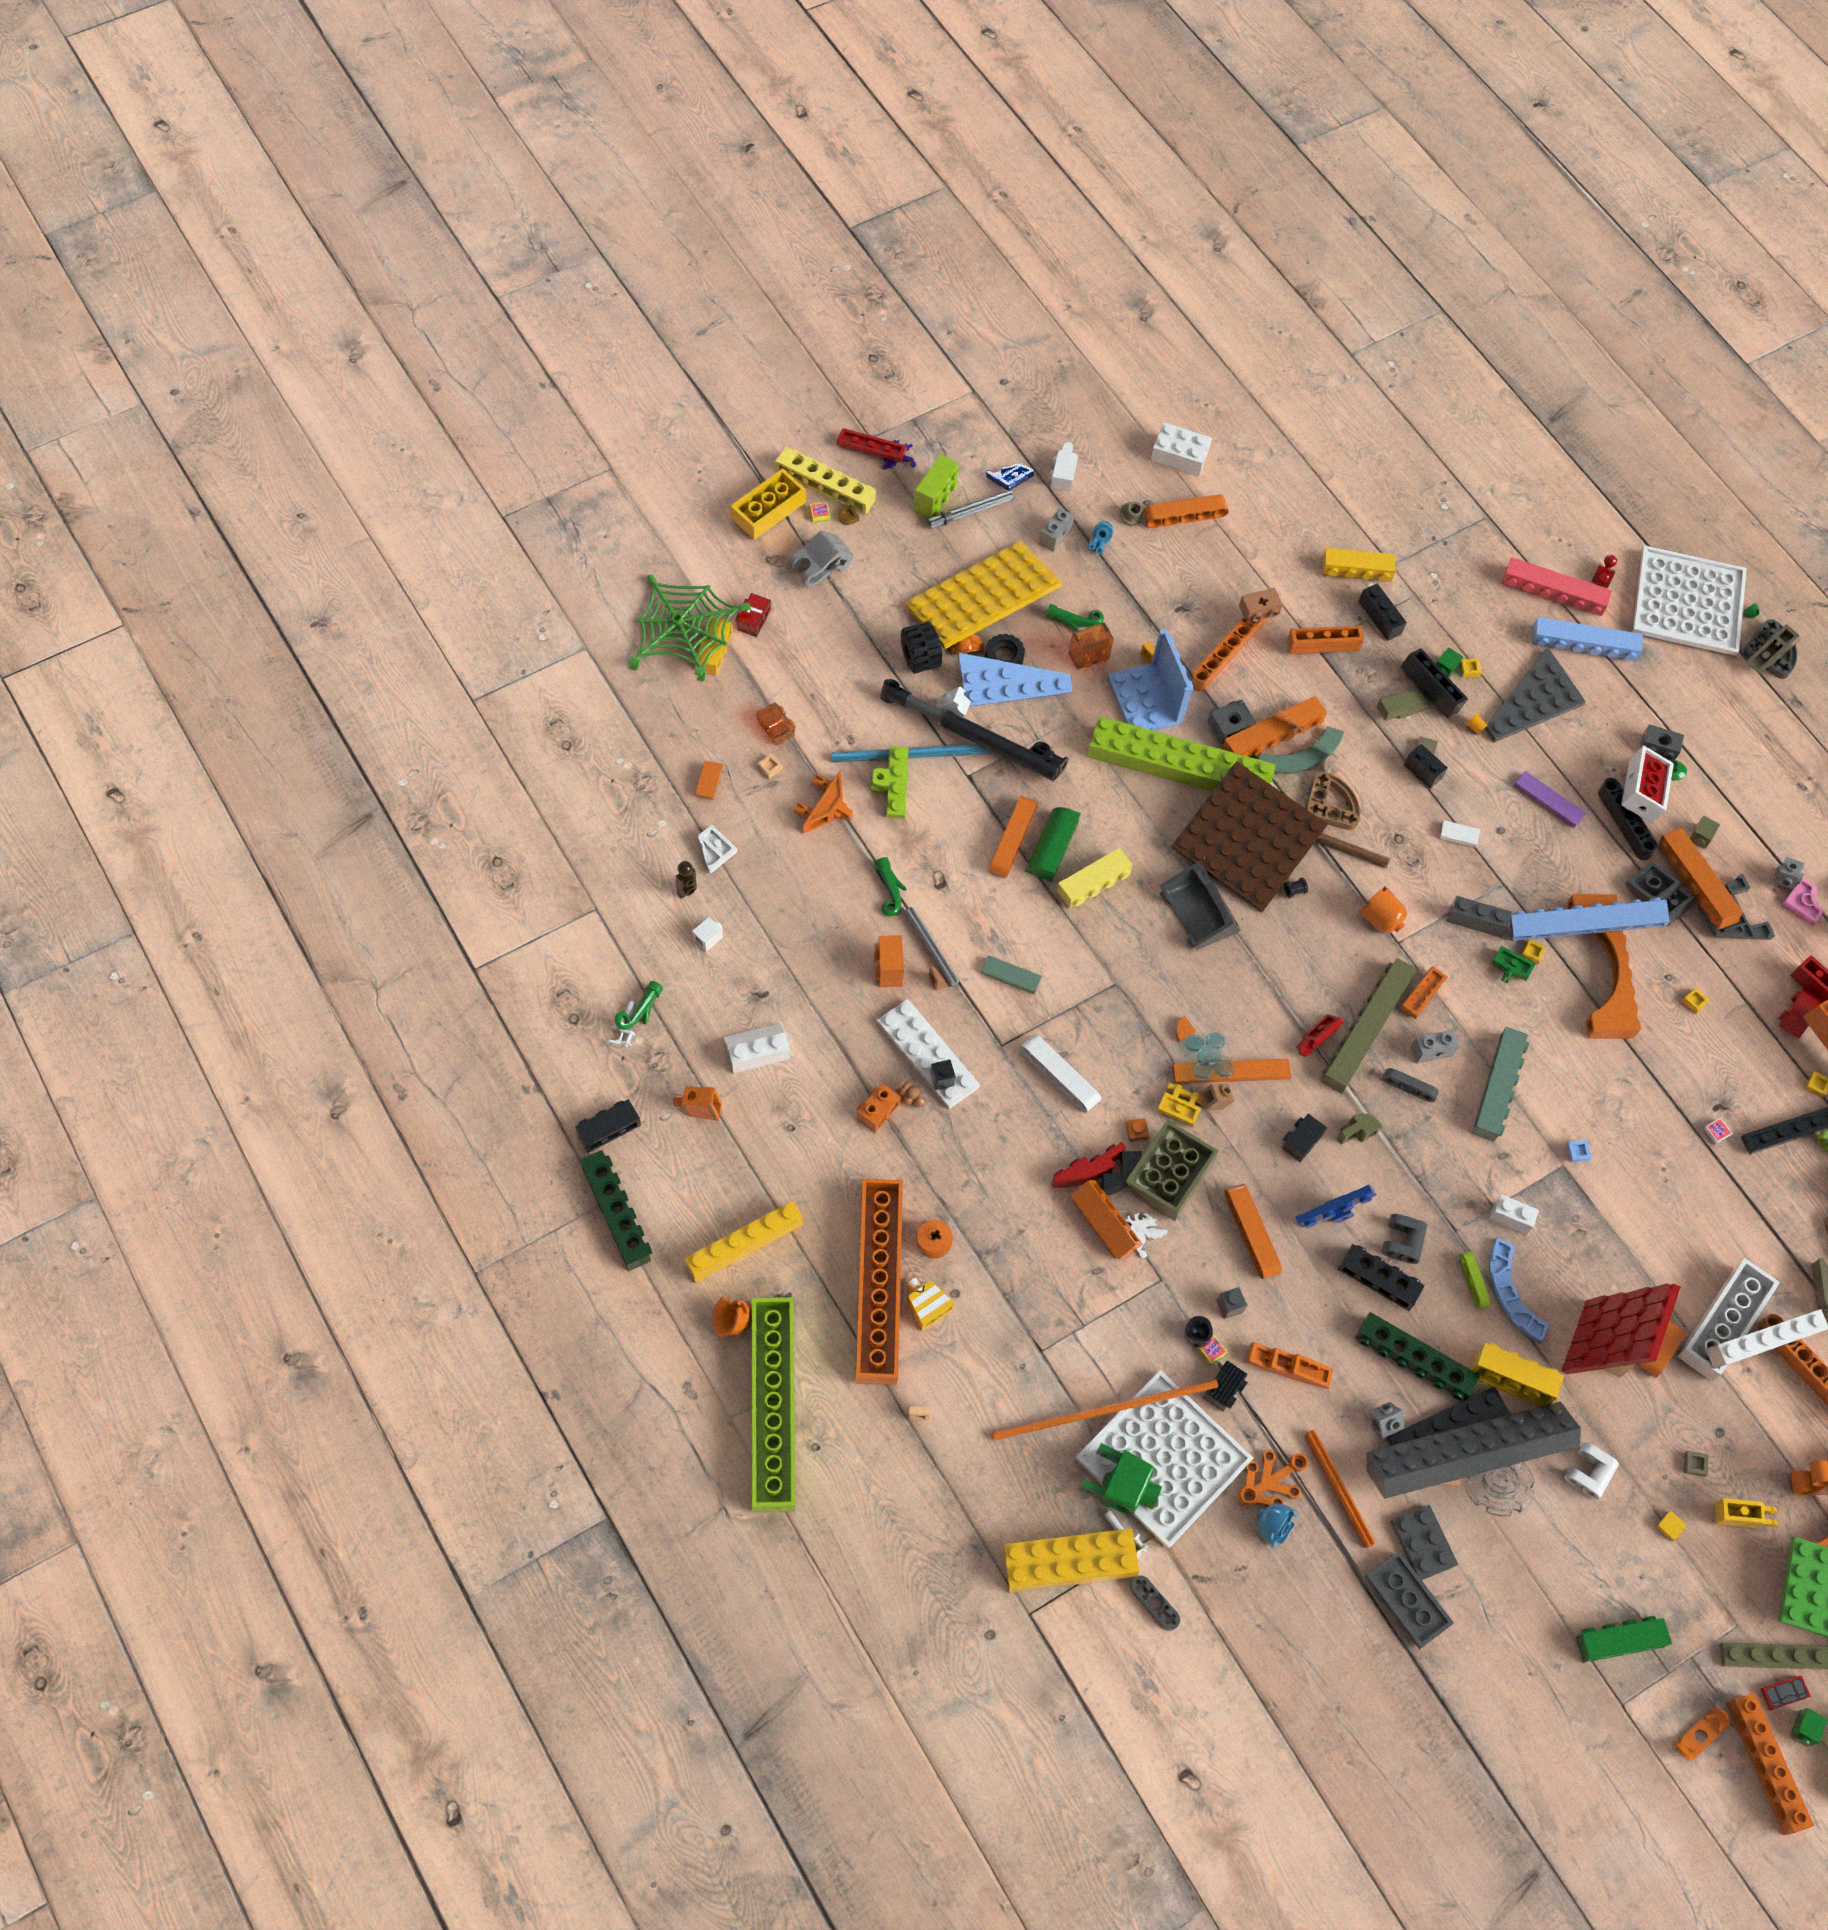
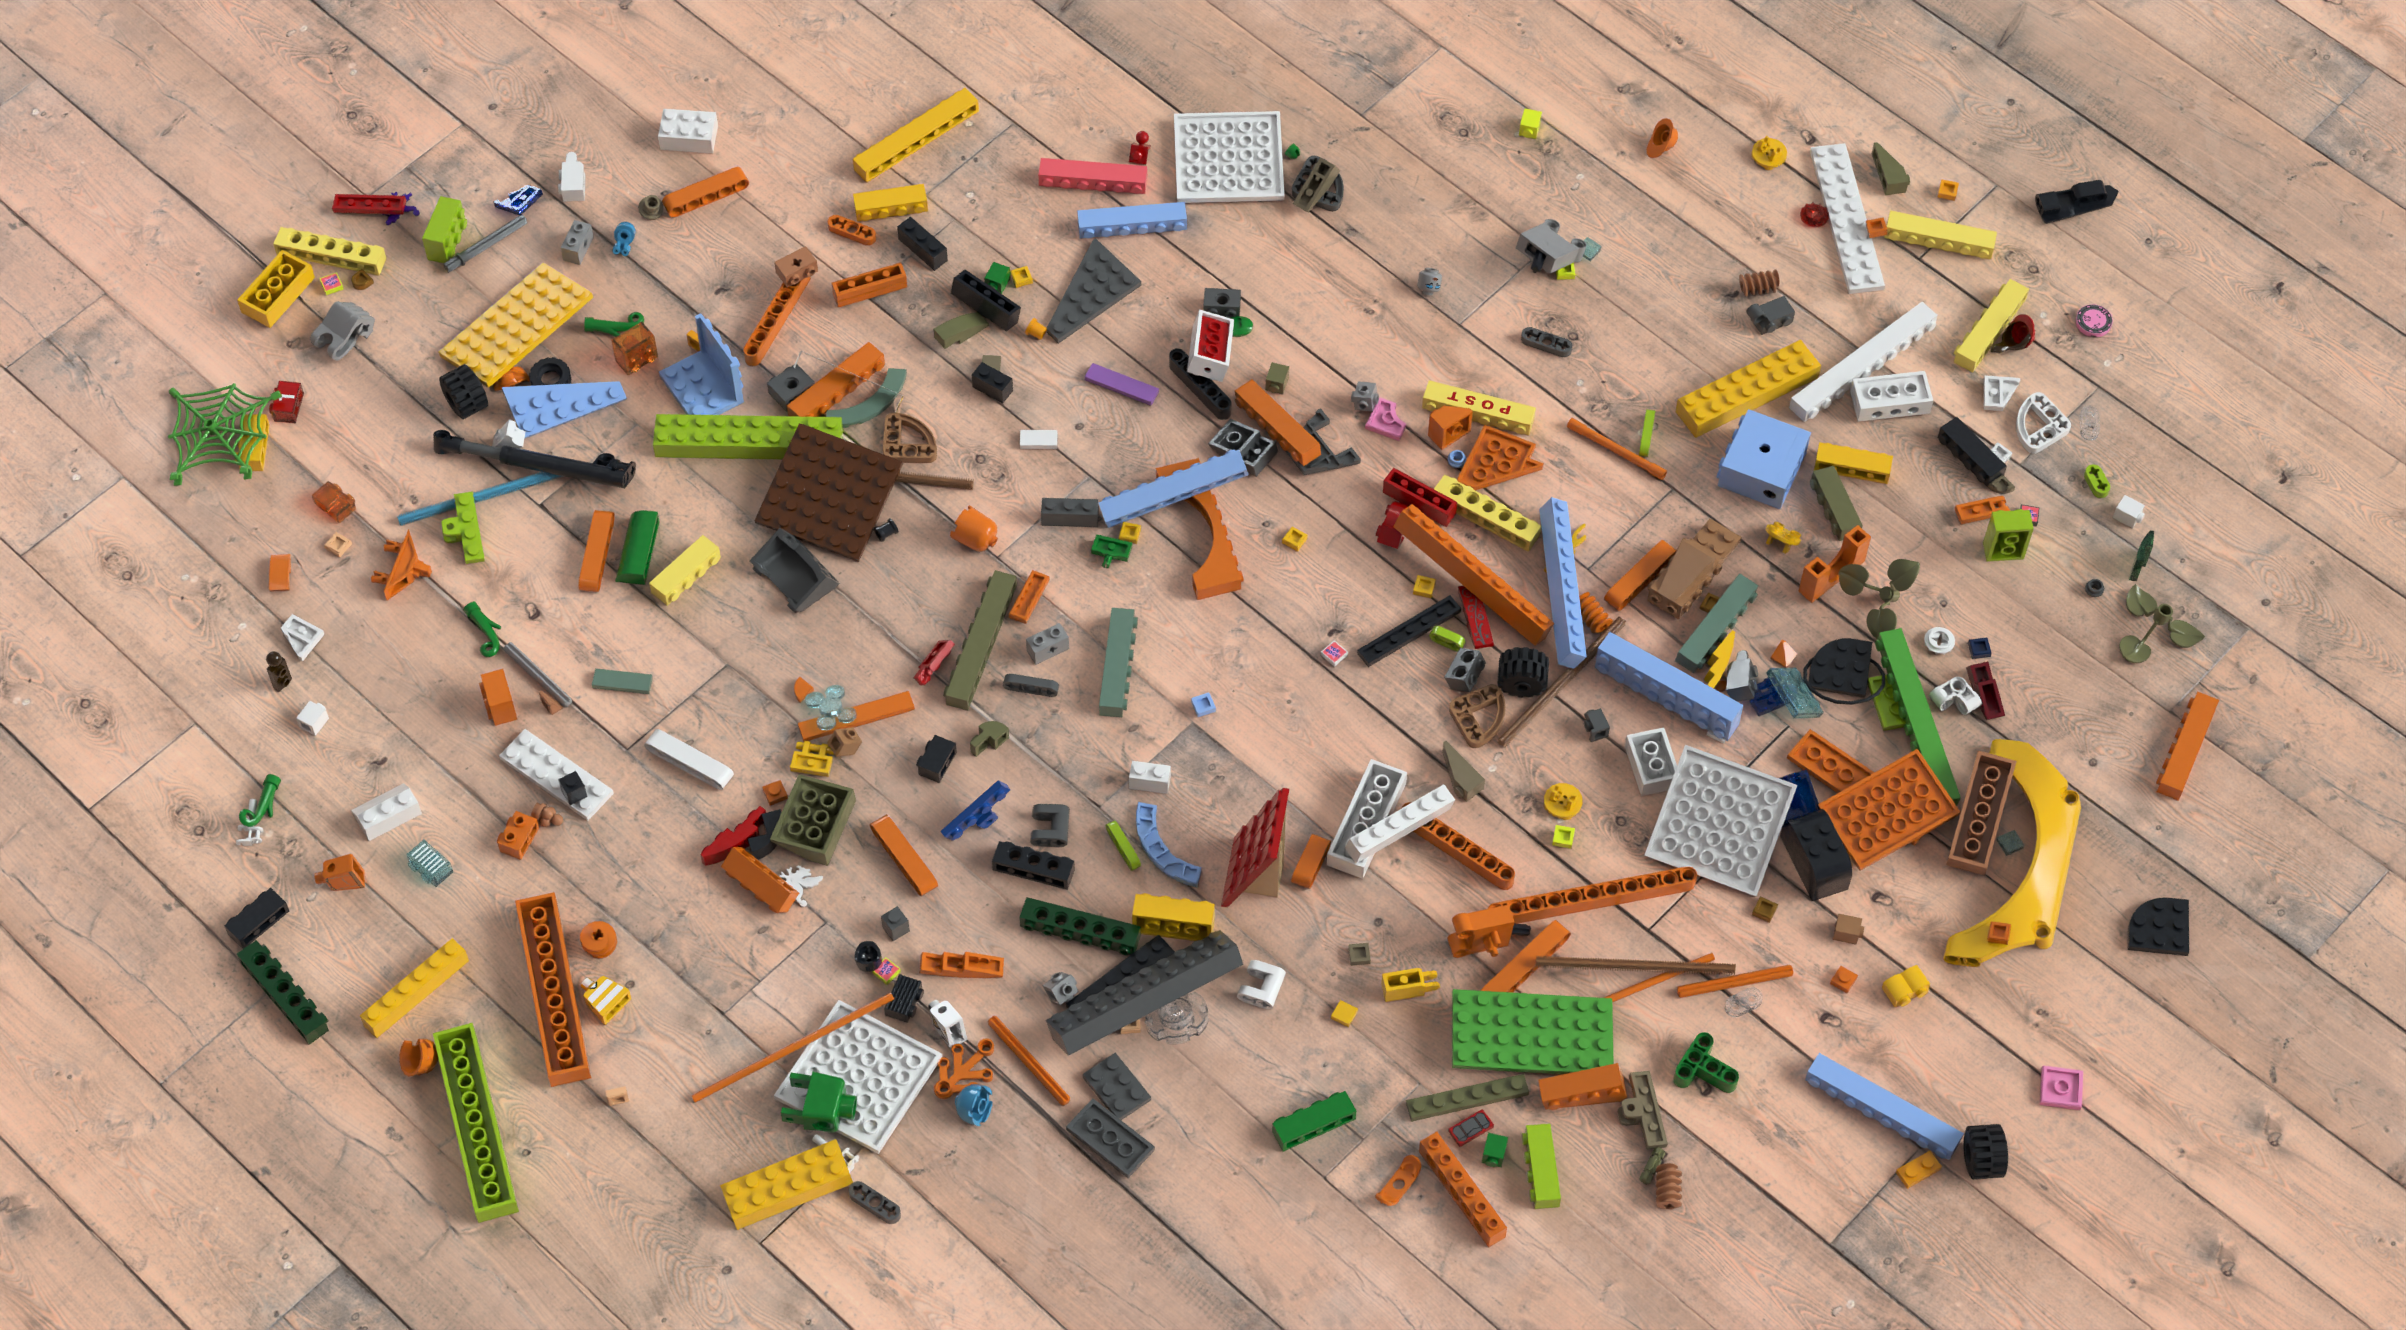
camera: 10 degrees left, 5 degrees down
(786, 1113) = (429, 863): none -> clear light blue brick
(1265, 1425) = (943, 1018): none -> white torso
(1303, 578) = (846, 224): none -> orange beam
(1394, 505) = (915, 135): none -> yellow brick

